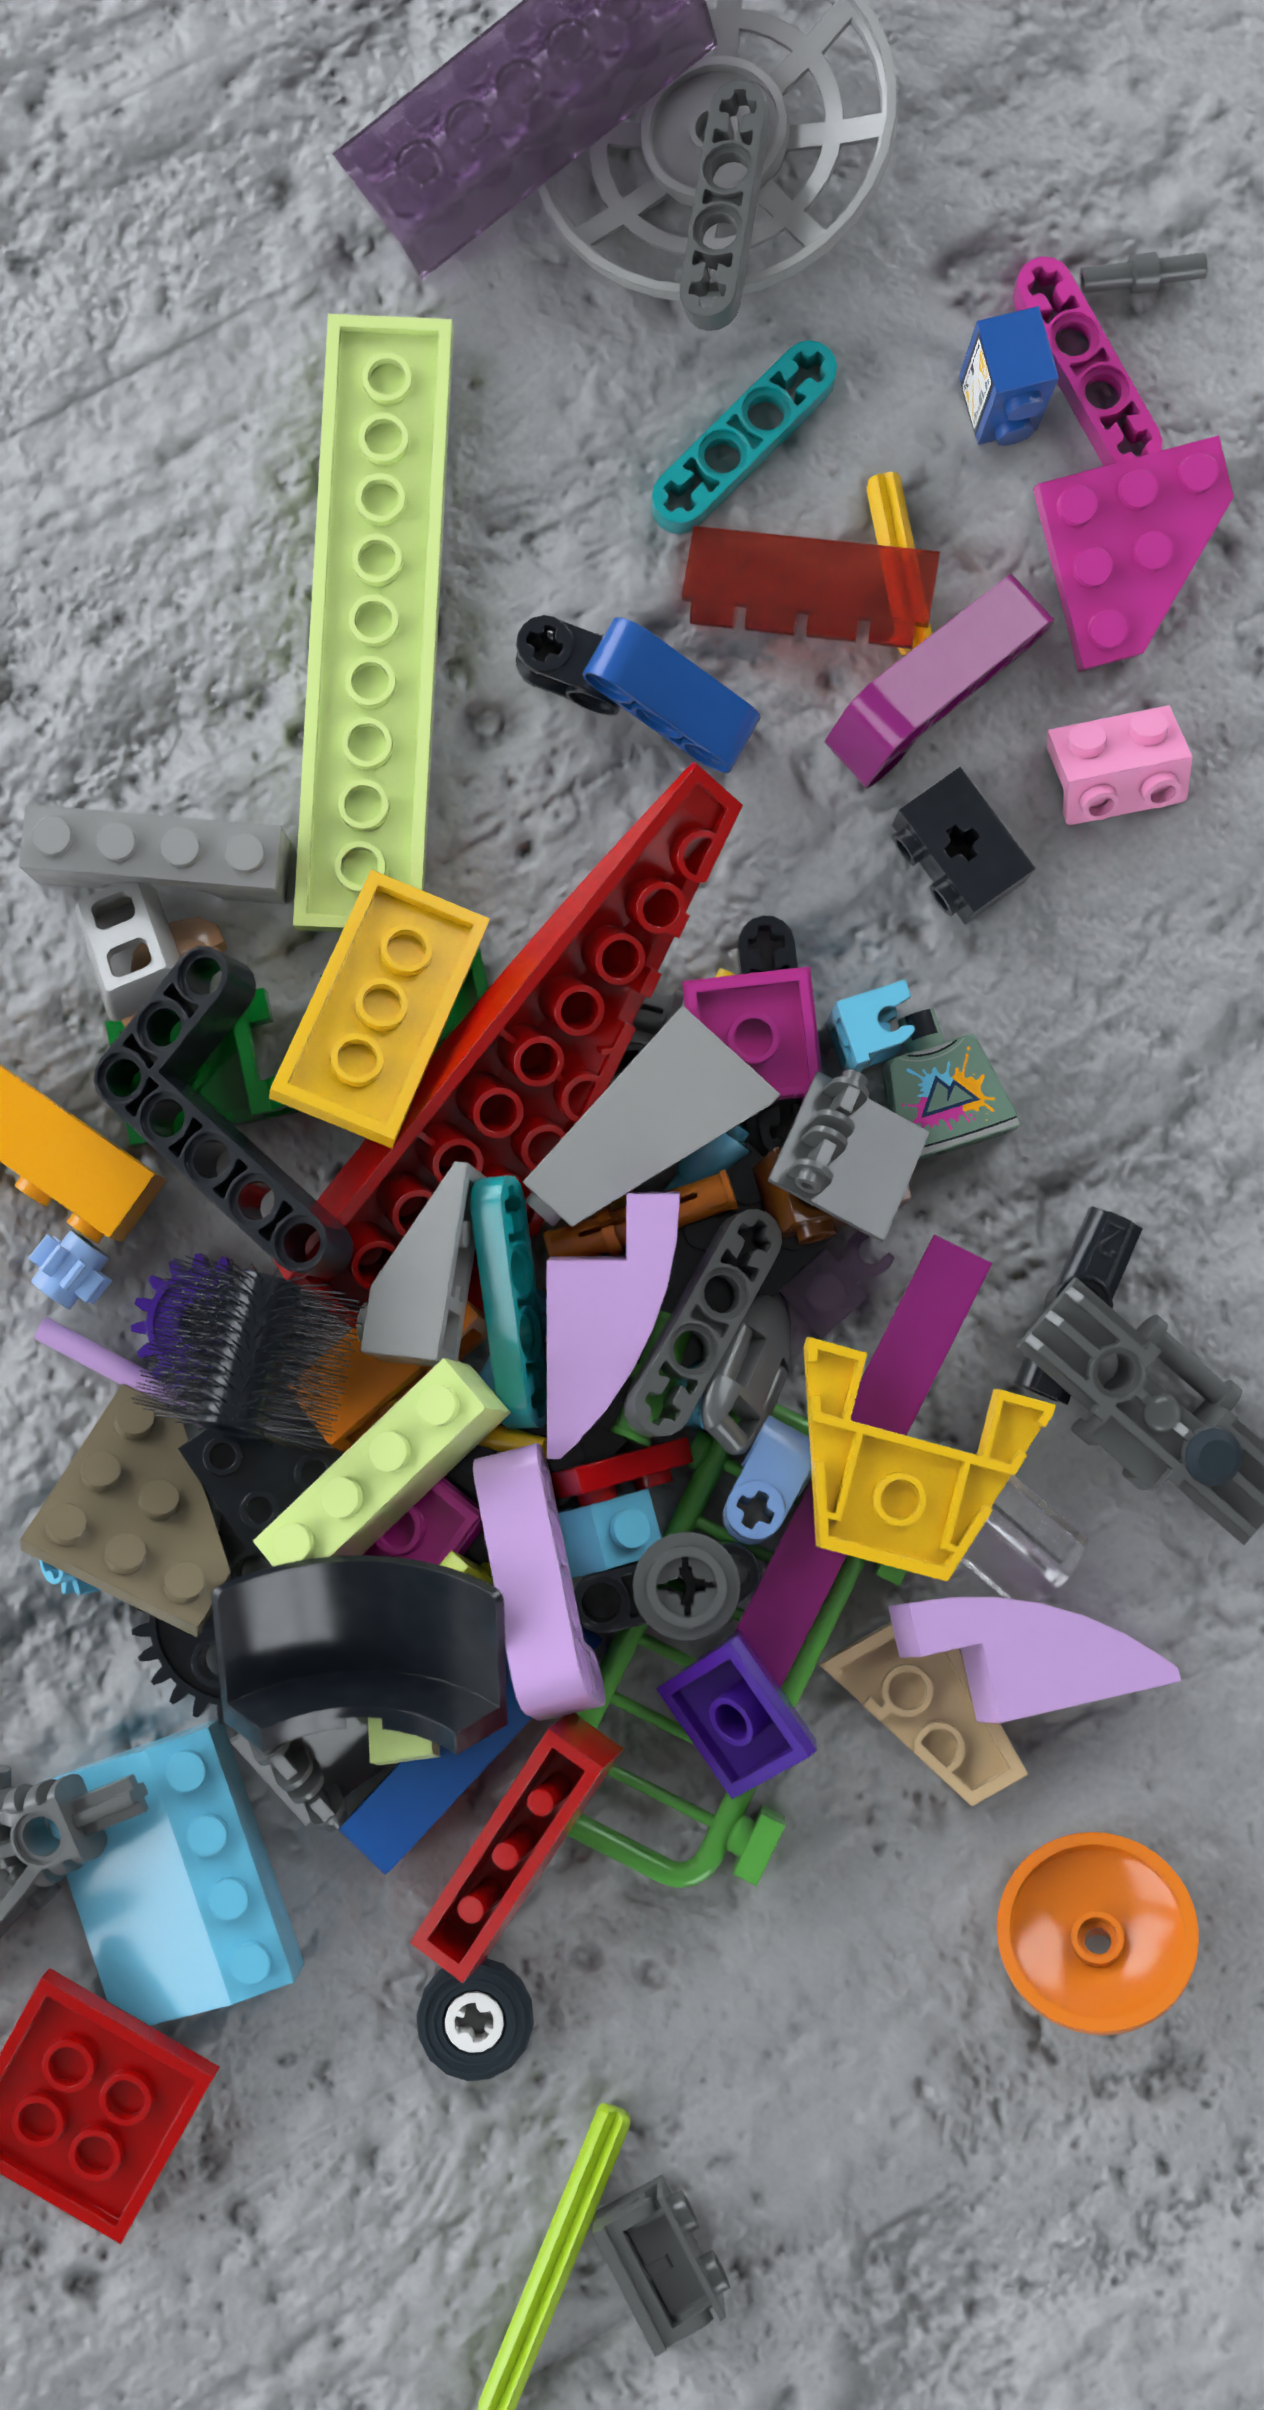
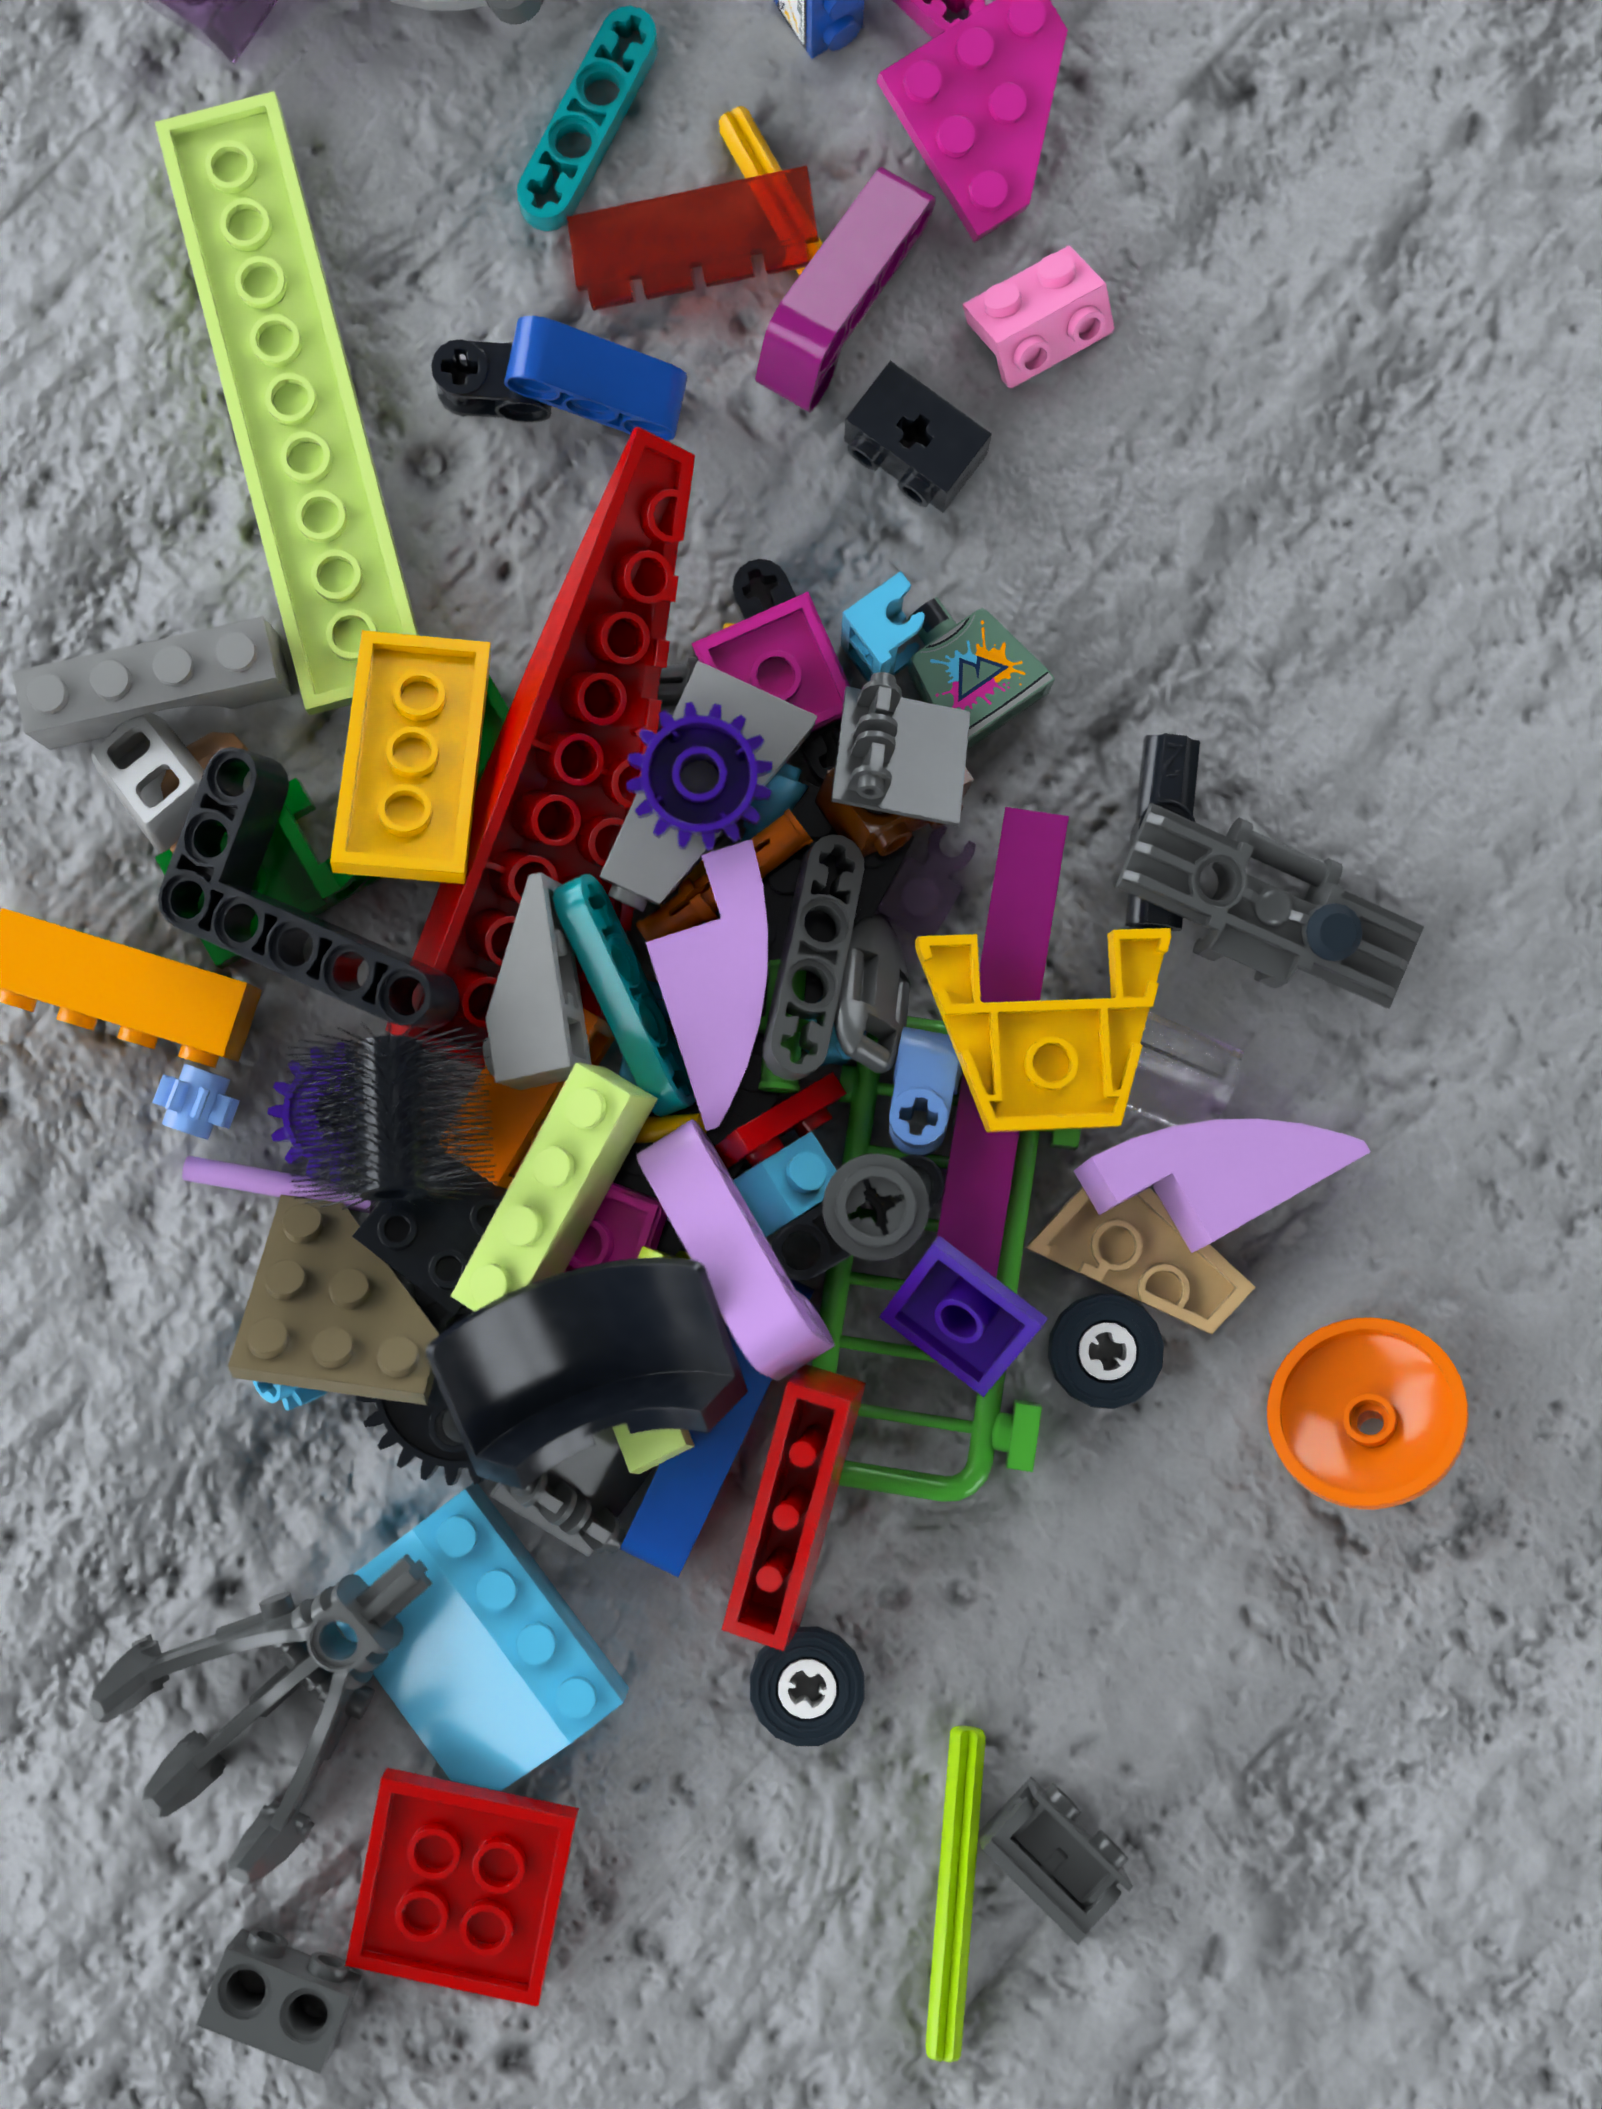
camera: 15 degrees left, 0 degrees up
(675, 1094) = (707, 740): none -> dark purple gear
(837, 1806) = (1084, 1376): none -> black bush

